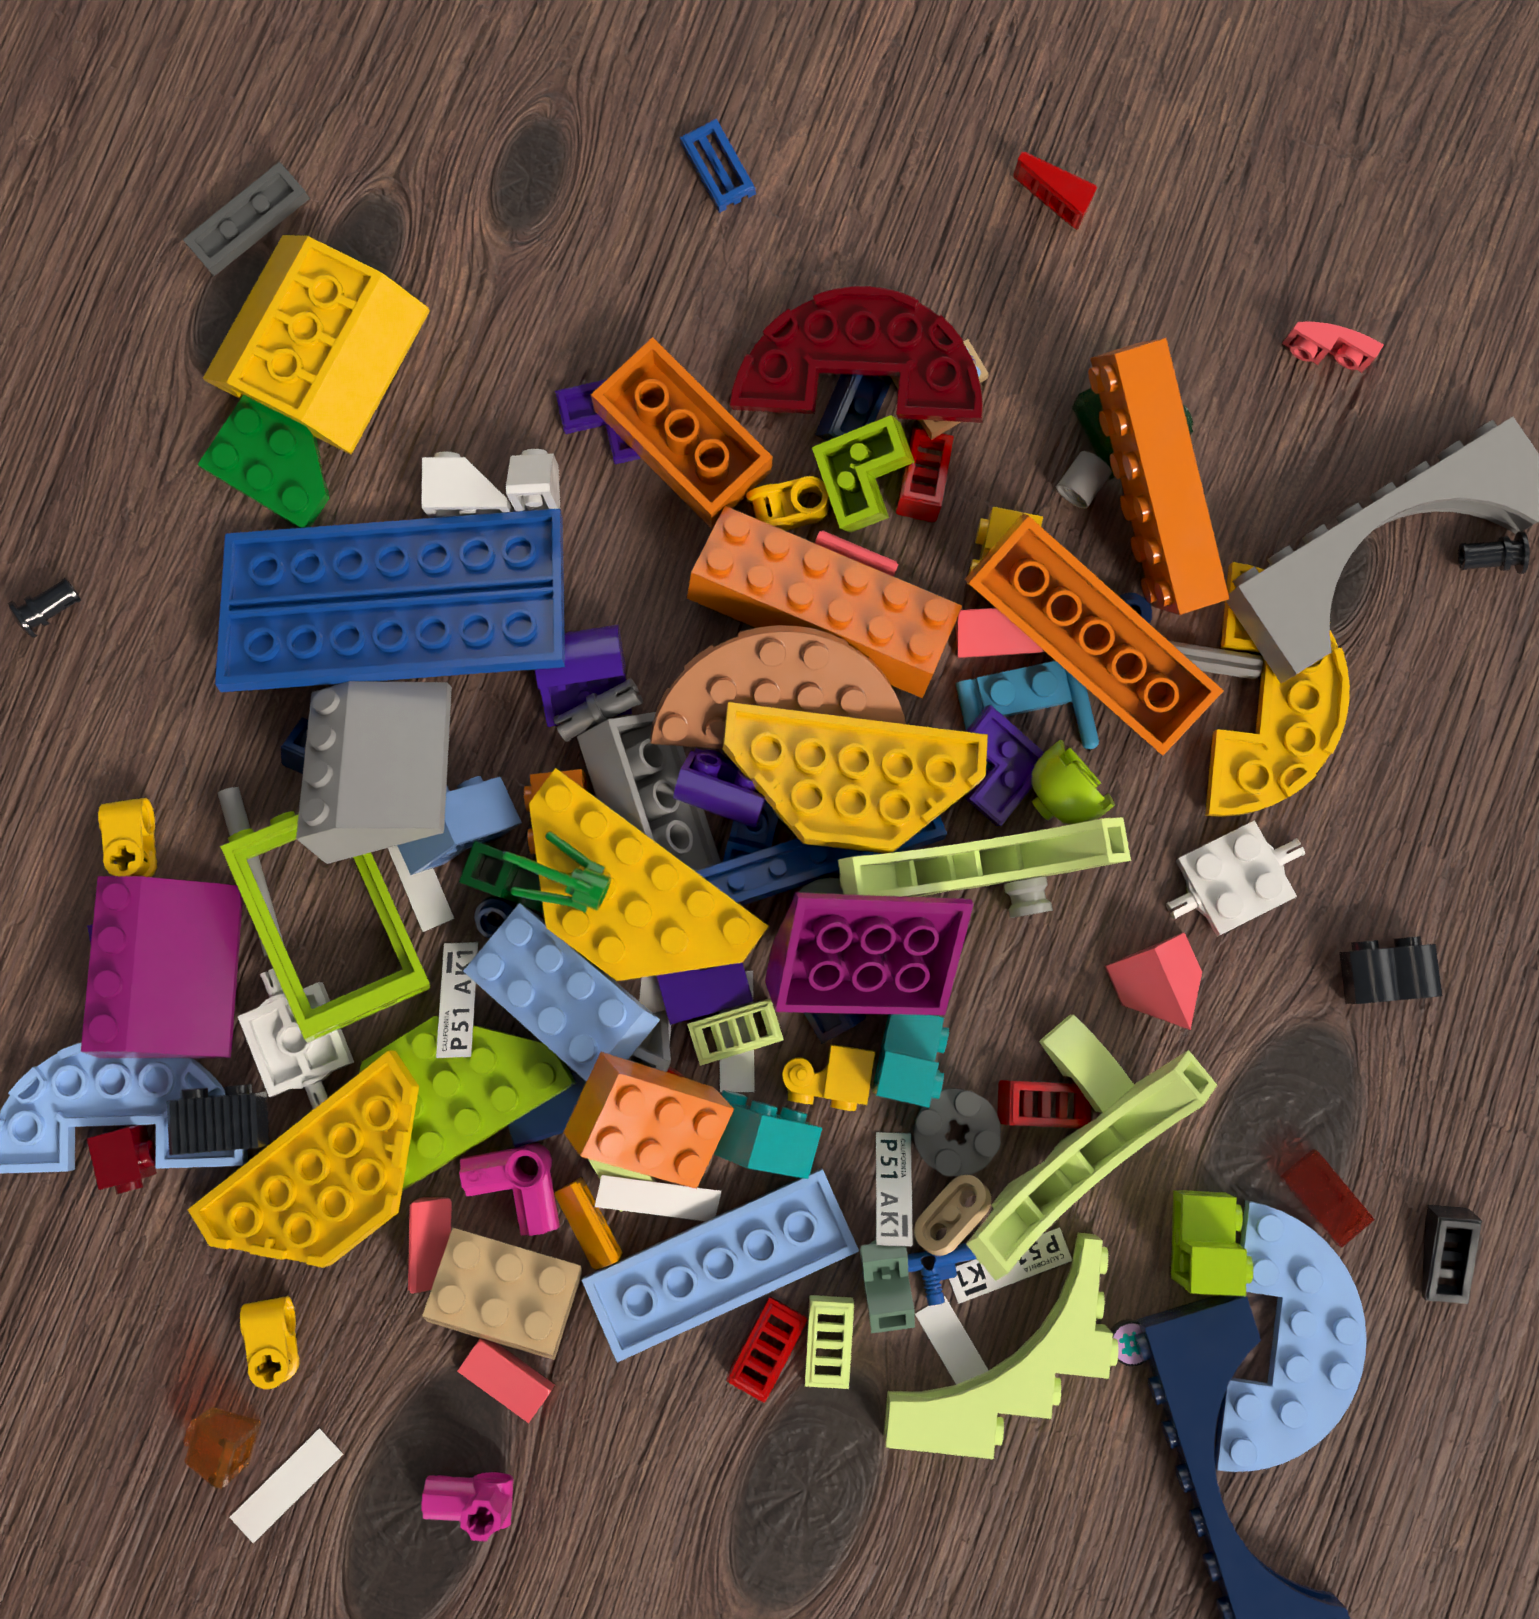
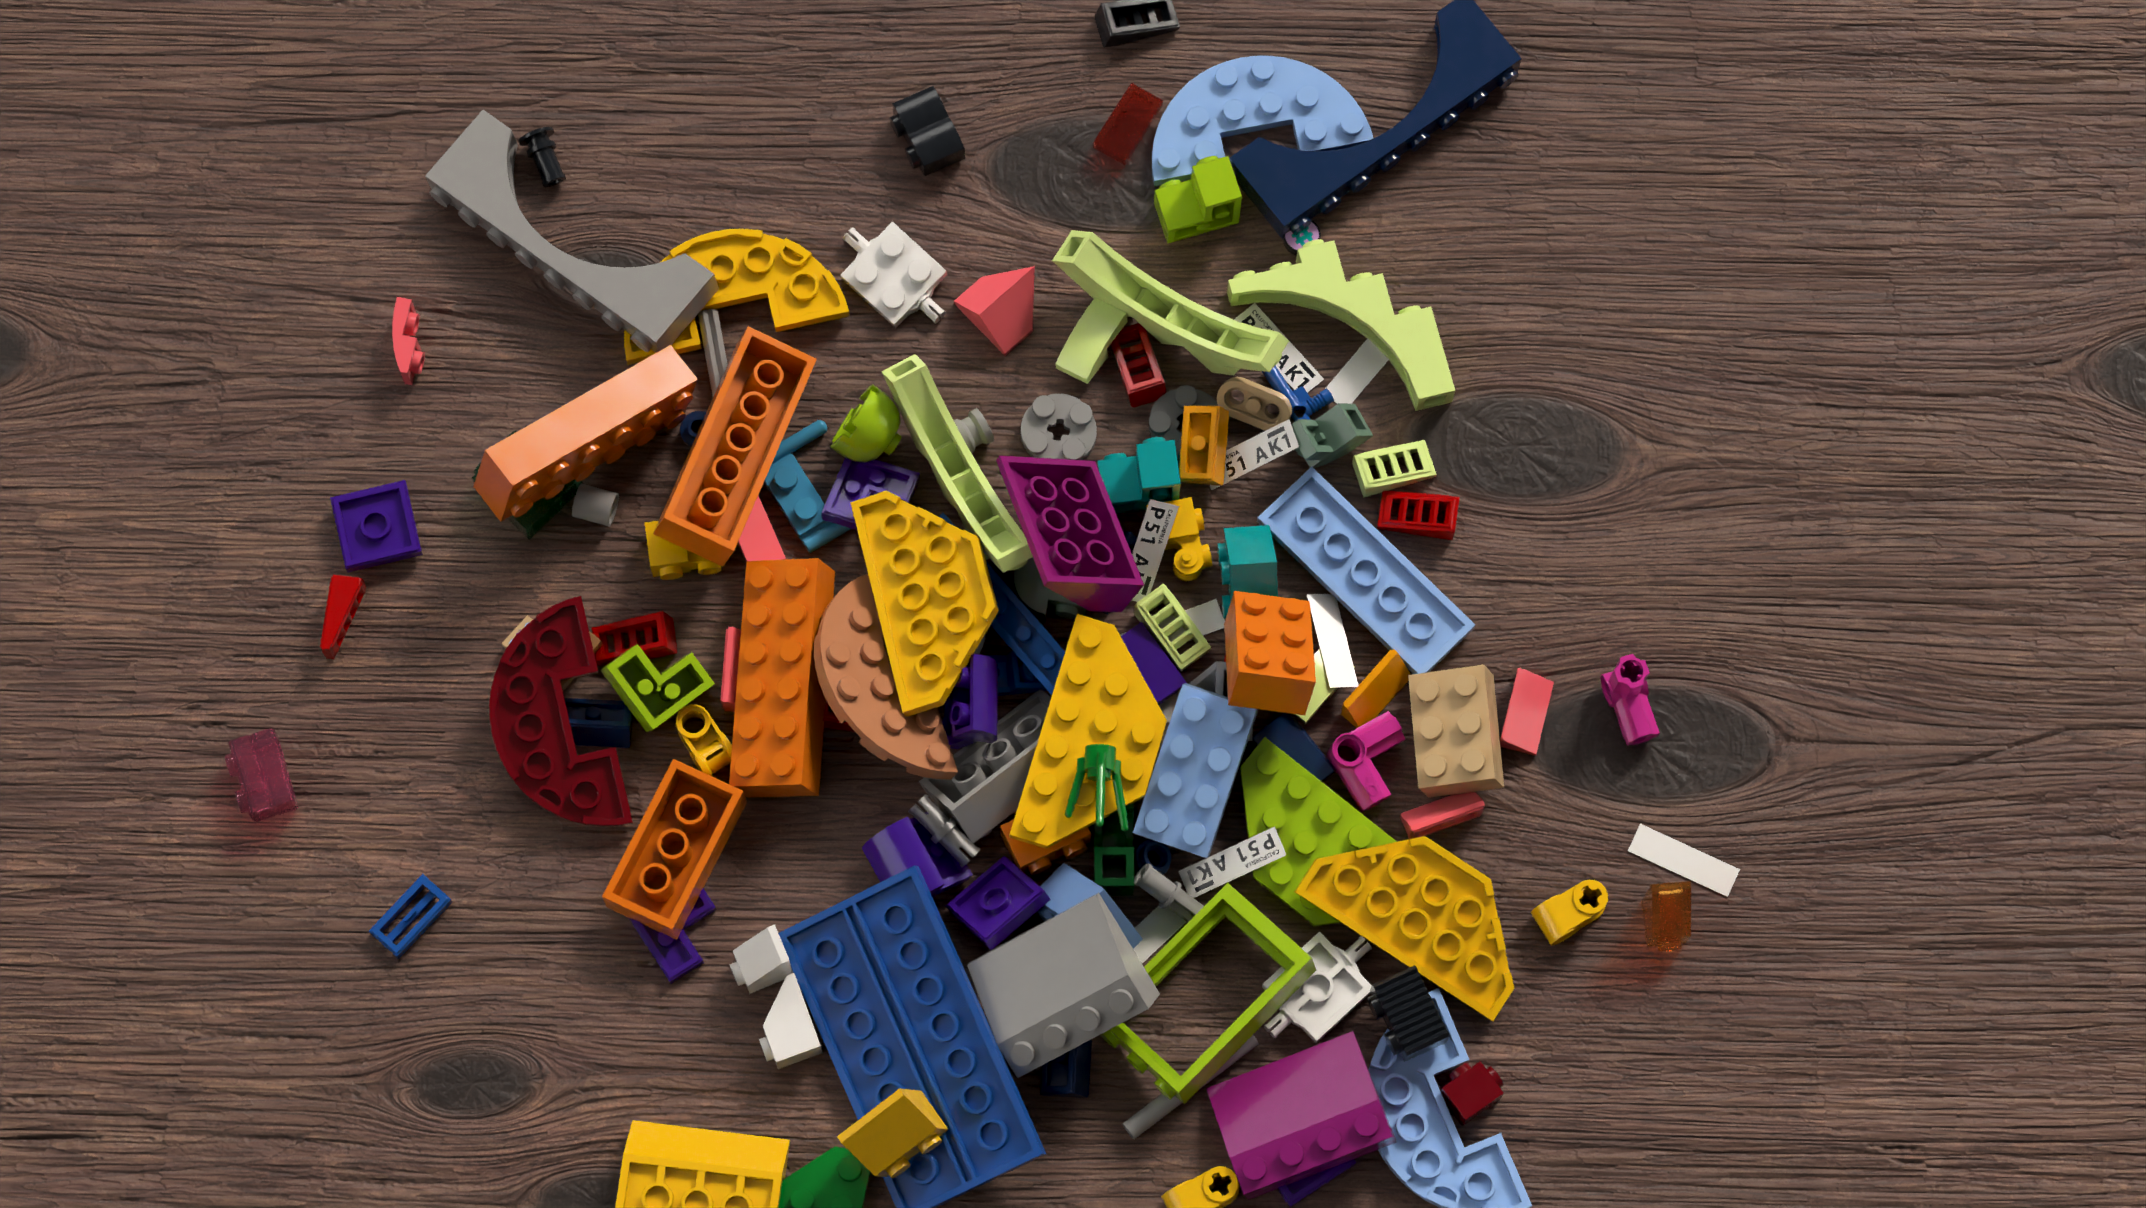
camera: 115 degrees left, 10 degrees down
(296, 545) = (894, 1133): none -> yellow slope
(448, 920) = (1167, 893): none -> light grey axle
(503, 739) = (997, 902): none -> dark purple plate
(829, 1042) = (1152, 542): none -> white sticker
(913, 63) = (262, 775): none -> clear pink brick
(923, 1141) = (1203, 445): none -> light orange slope
(1022, 985) = (1054, 410): none -> light grey plate
(1138, 255) = (376, 526): none -> dark purple plate

